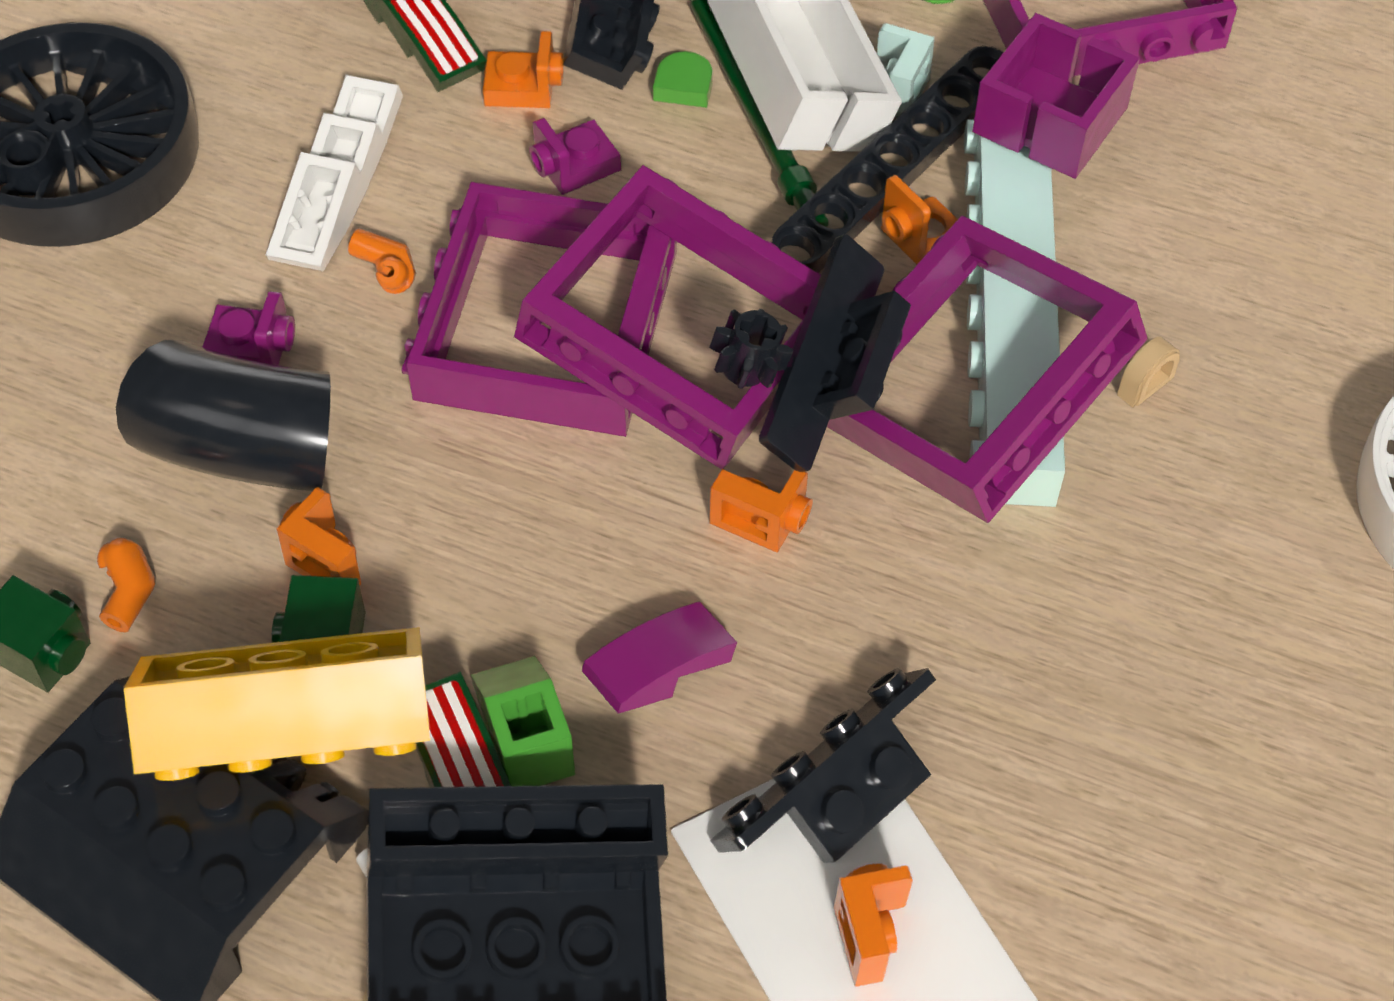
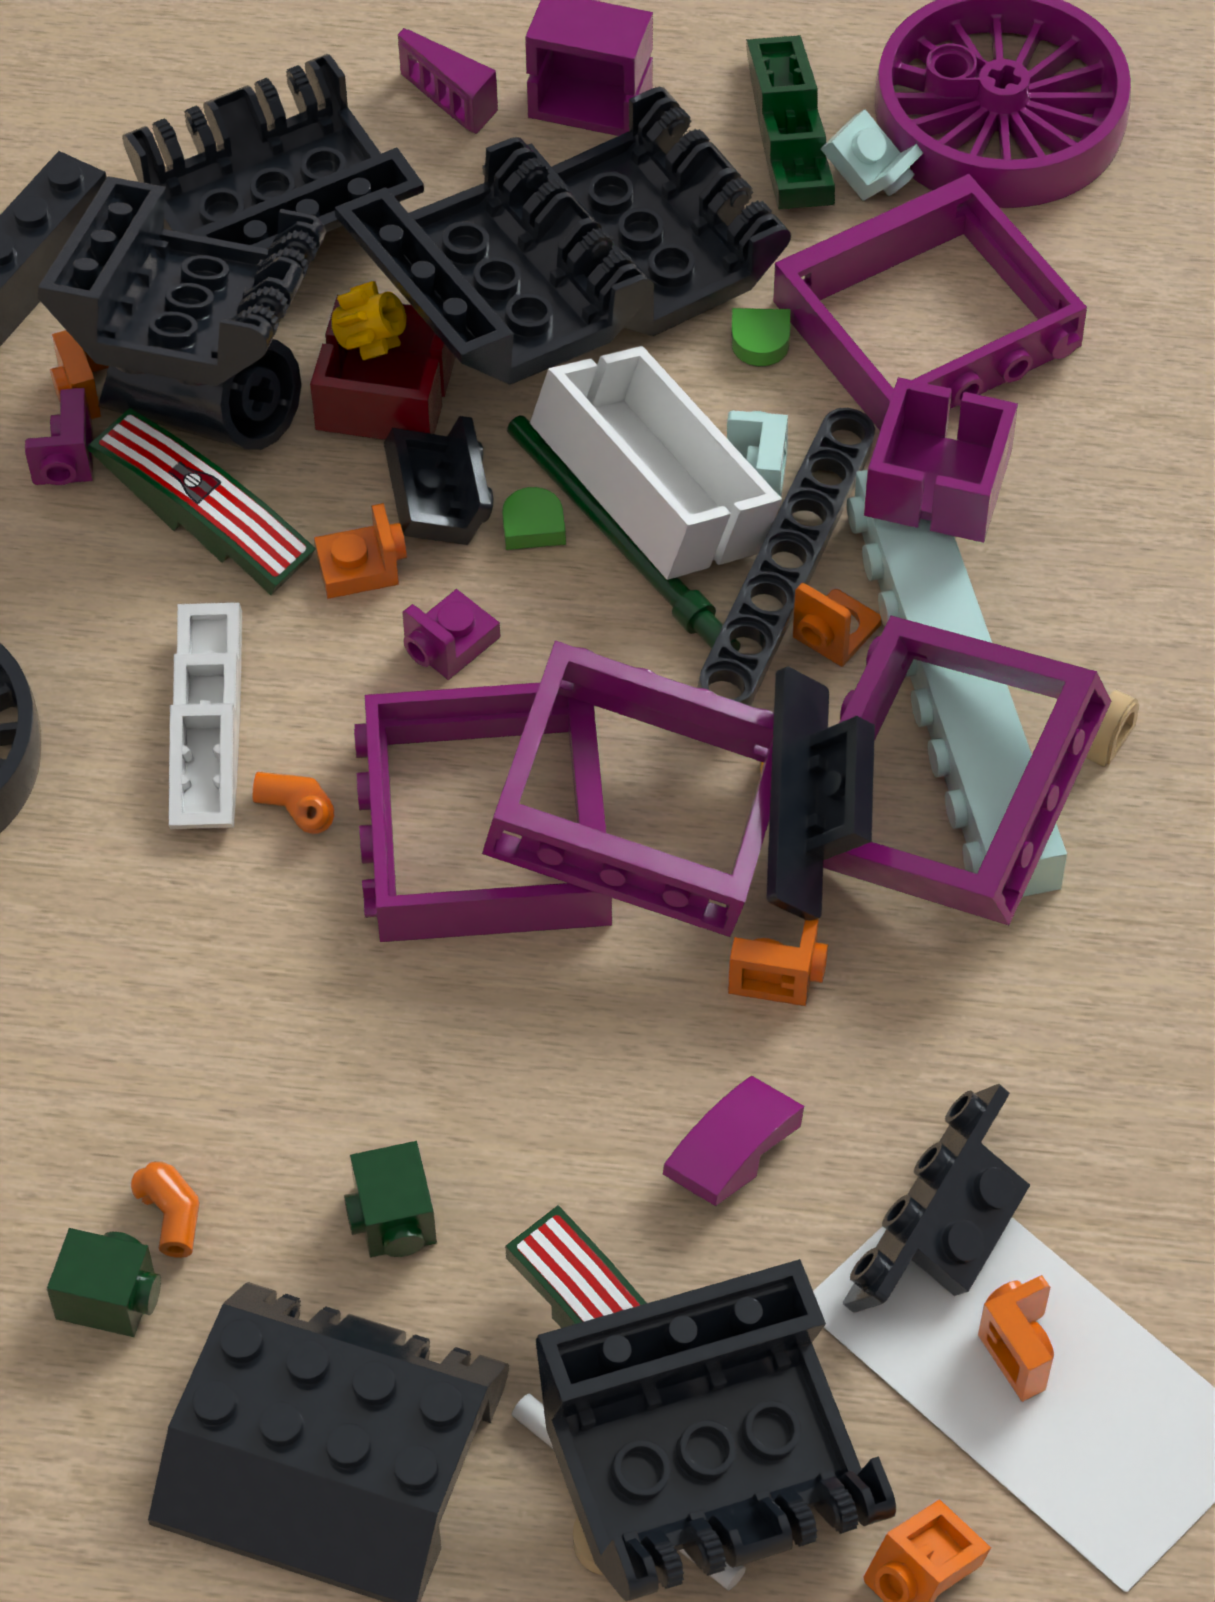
camera: 15 degrees left, 0 degrees up
(227, 415) = (224, 1008): black brick -> none
(252, 332) = (187, 918): magenta bracket -> none
(277, 703) = (409, 1277): yellow slope -> none
(312, 542) = (352, 1123): orange bracket -> none
(525, 722) = (634, 1233): bright green slope -> none
(751, 348) = (734, 810): black gear -> none

